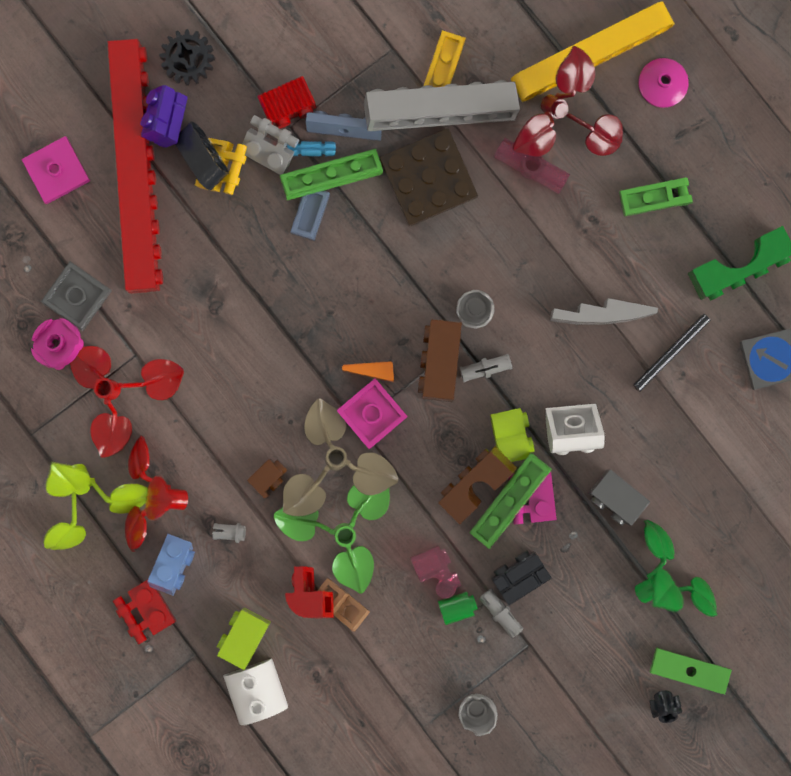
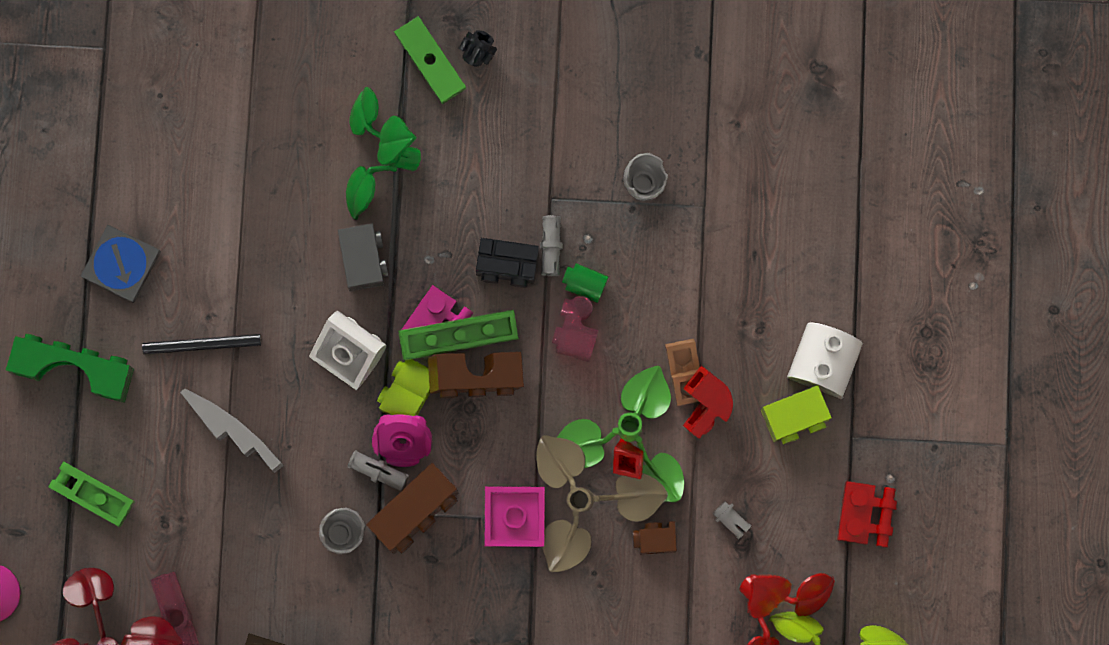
camera: 145 degrees left, 5 degrees down
(171, 564) = (808, 533): medium blue brick -> none
(328, 513) = (628, 460): none -> red slope
(376, 370) = (475, 550): orange slope -> none
(486, 412) = (397, 426): none -> dark pink plate

